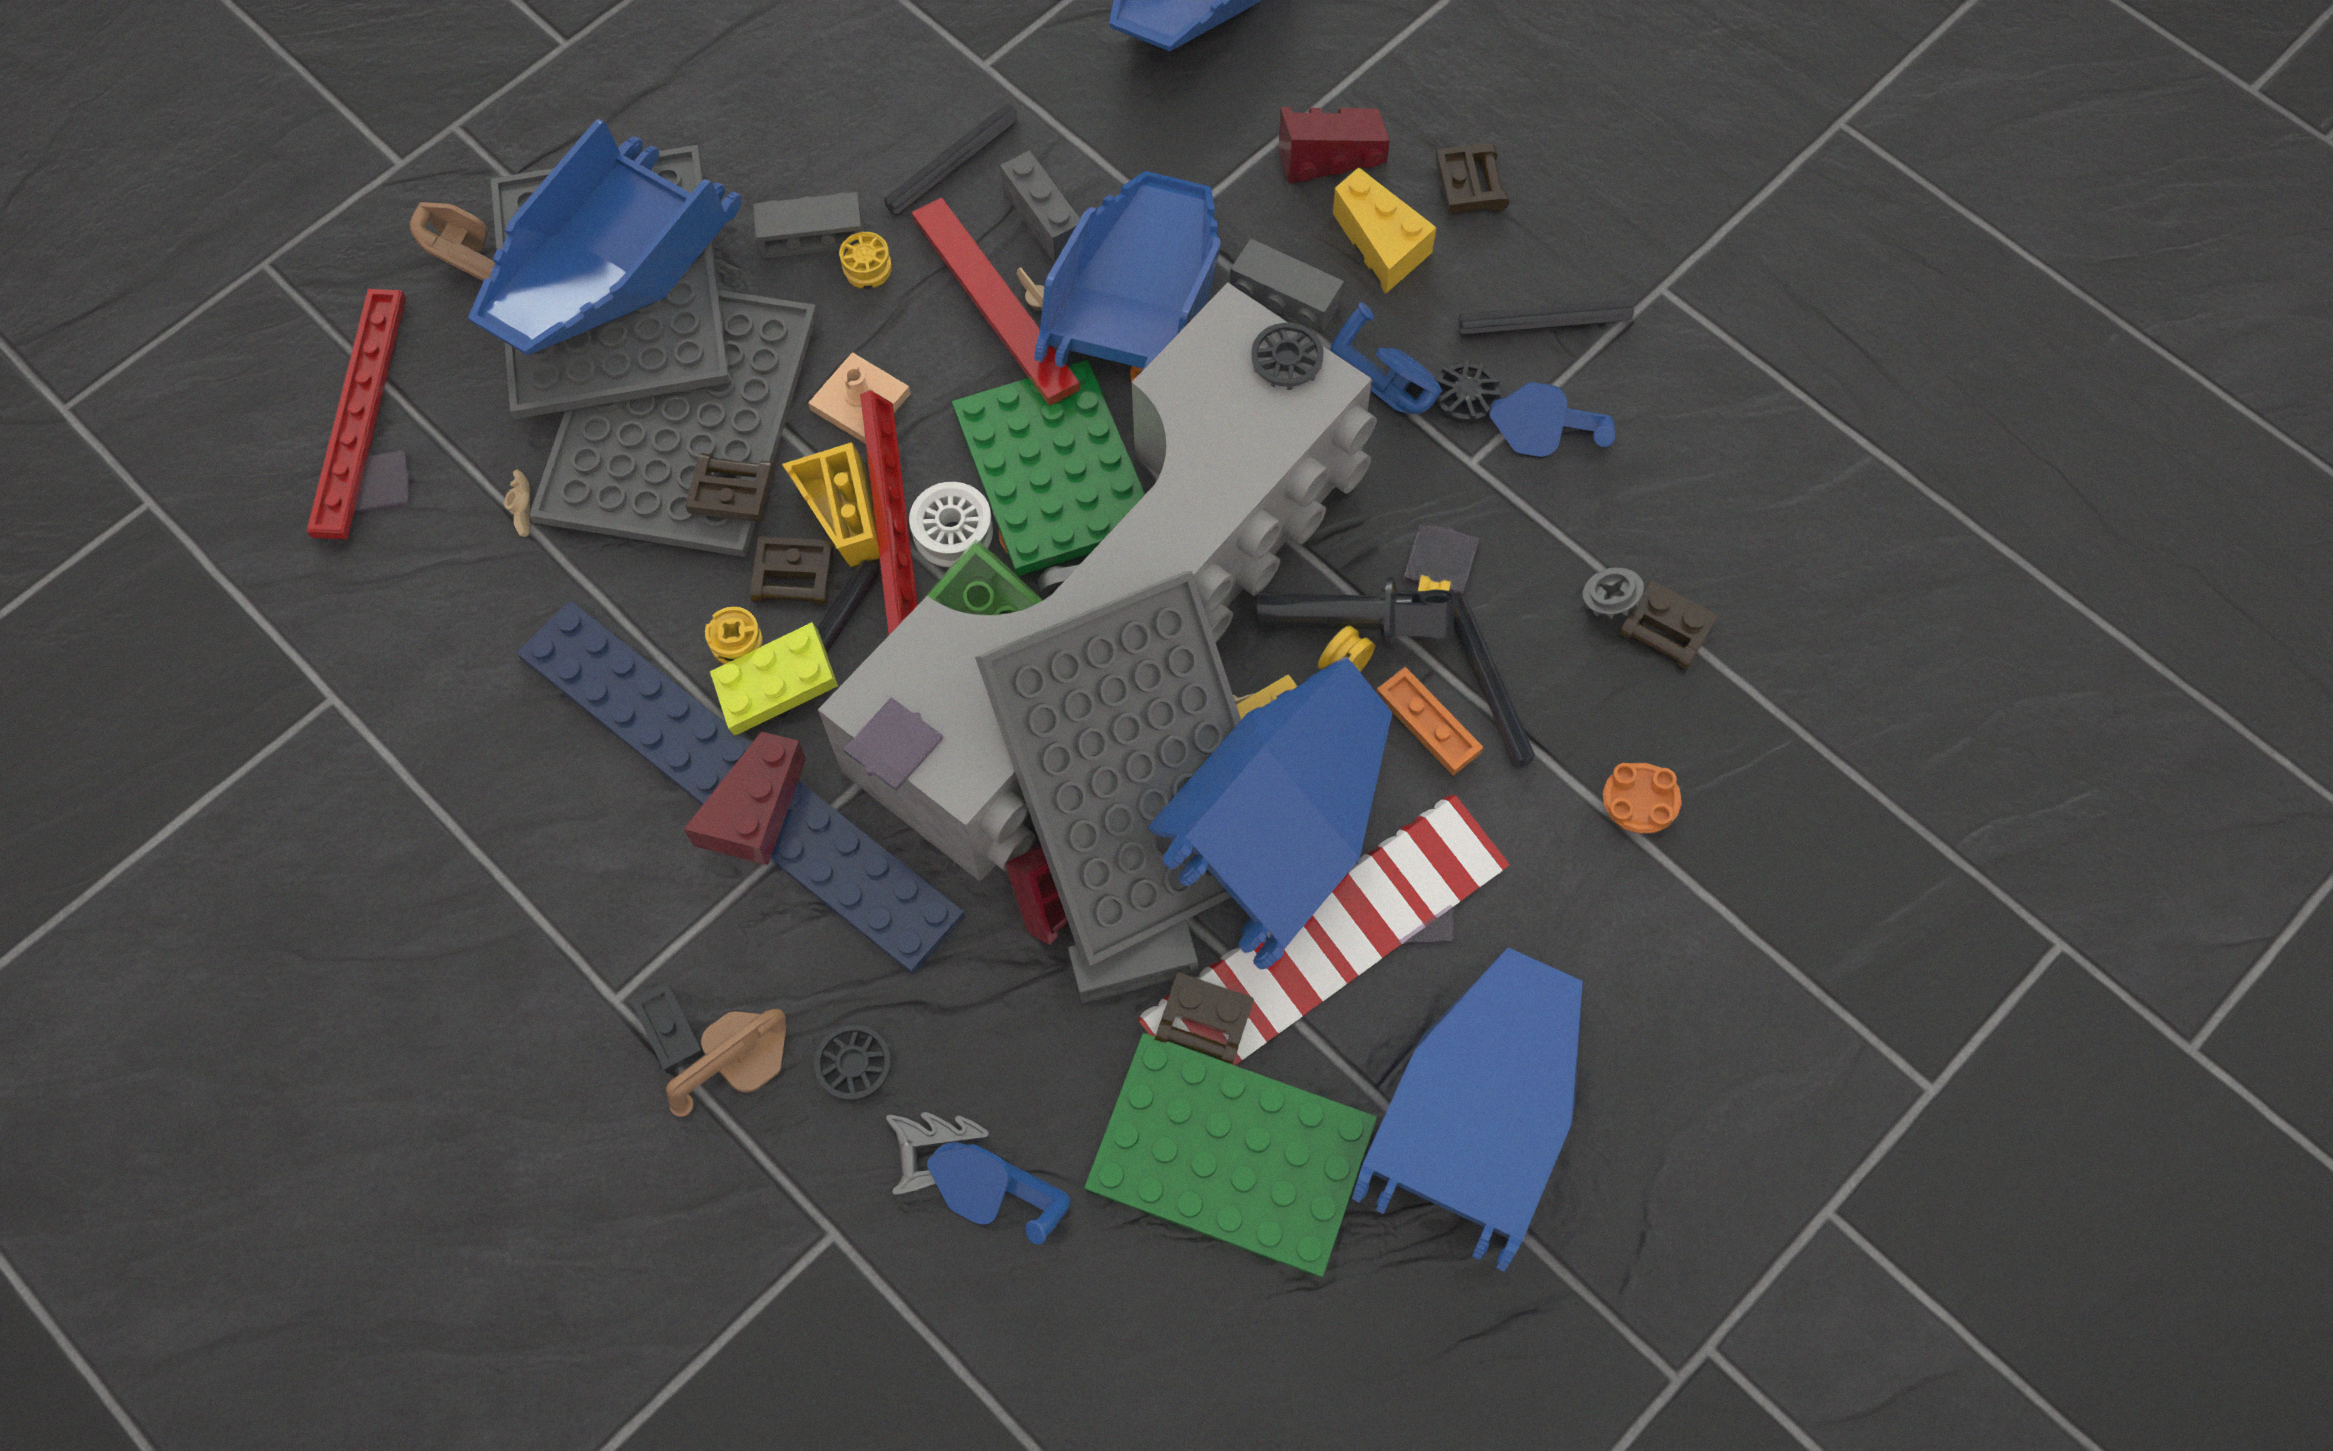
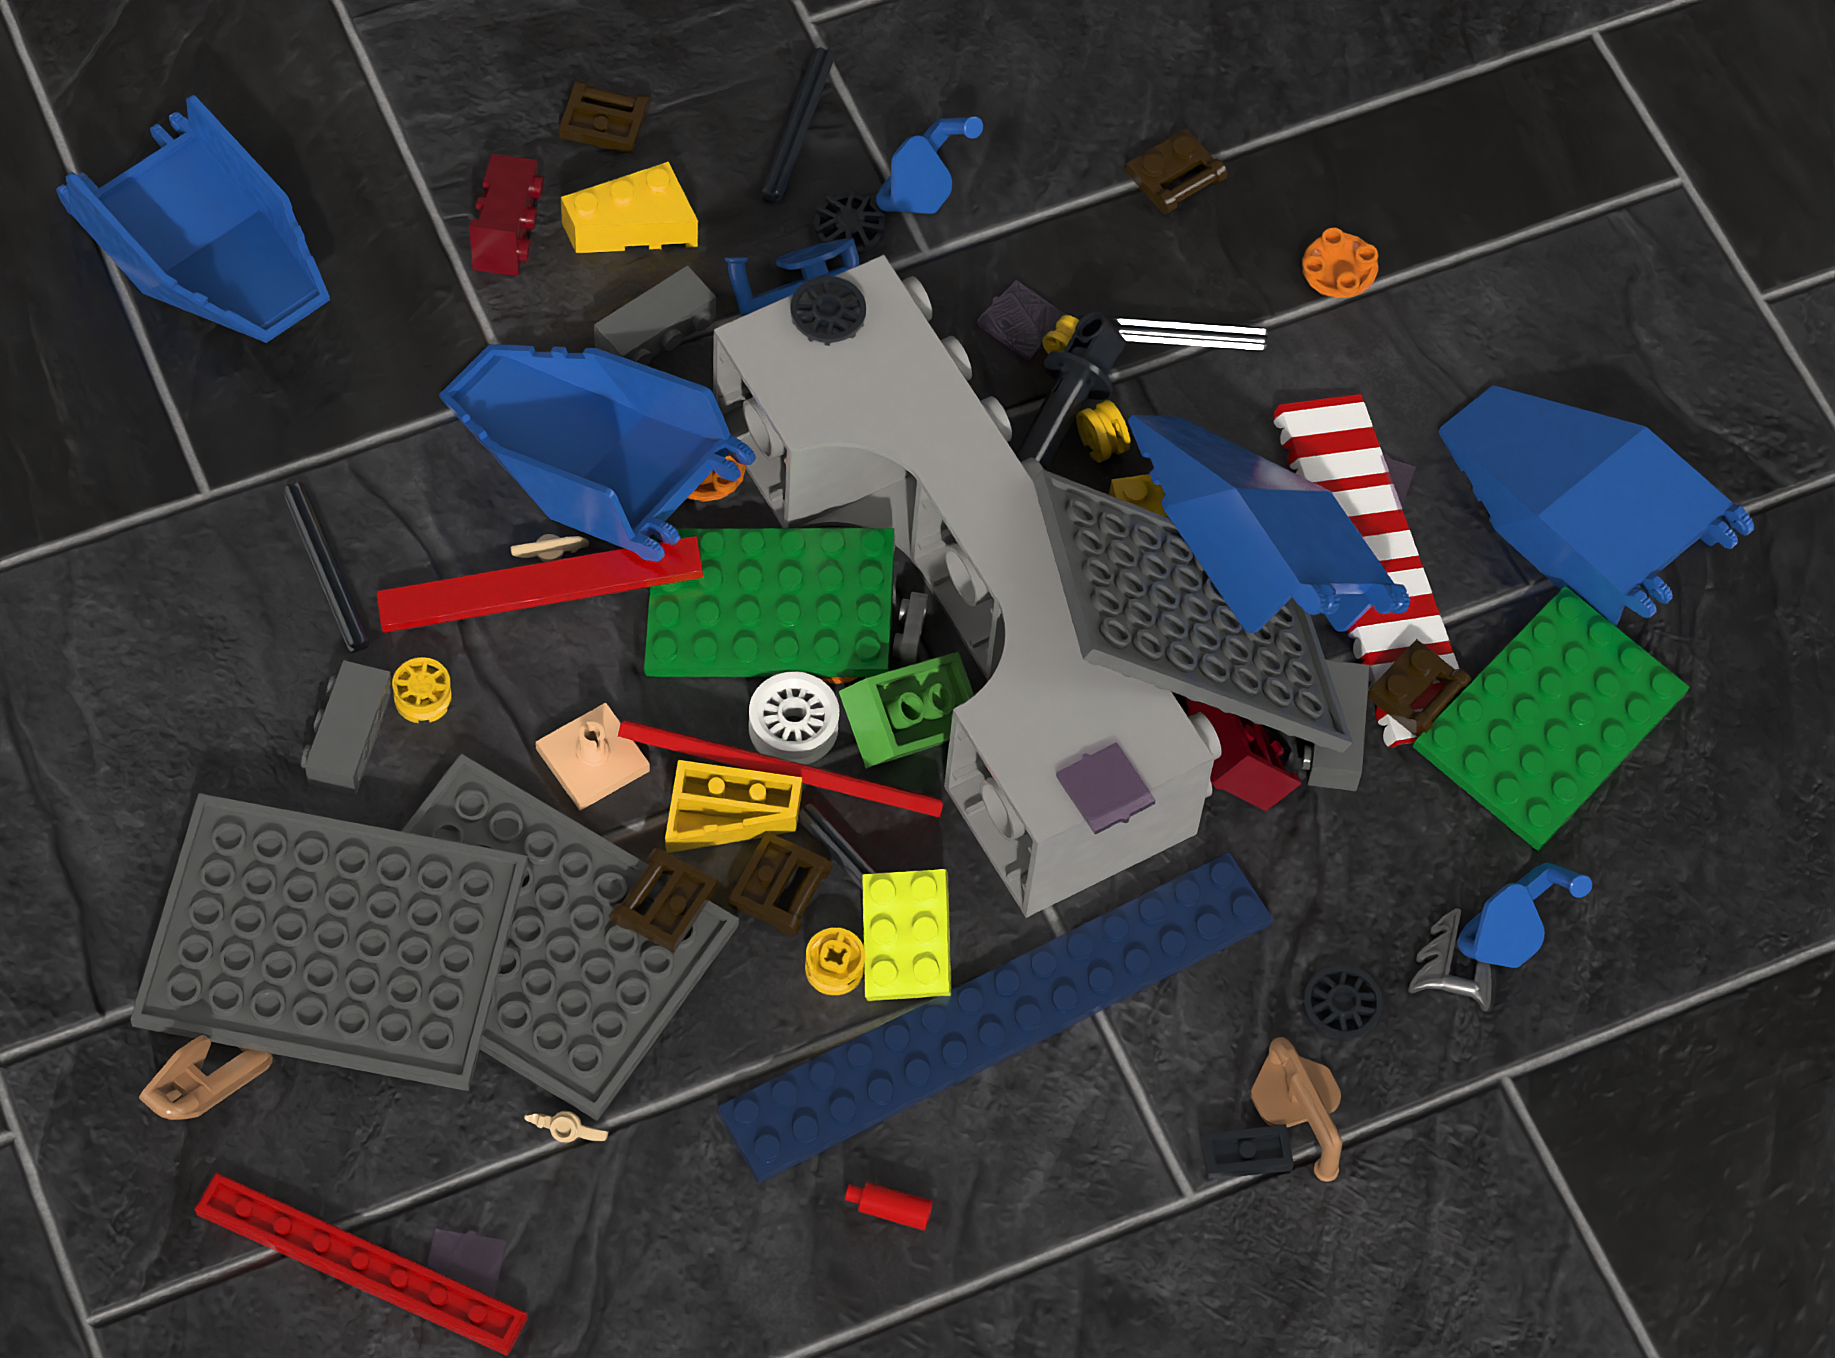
camera: 75 degrees left, 5 degrees down
(524, 761) = (891, 1204): none -> red cylinder
(596, 243) = (322, 915): blue windscreen -> none
(751, 801) = (1051, 985): dark red wedge -> none
(1039, 202) = (444, 499): dark grey brick -> none
(1429, 721) = (1197, 393): orange plate -> none
(1611, 581) = (1136, 181): dark grey gear -> none

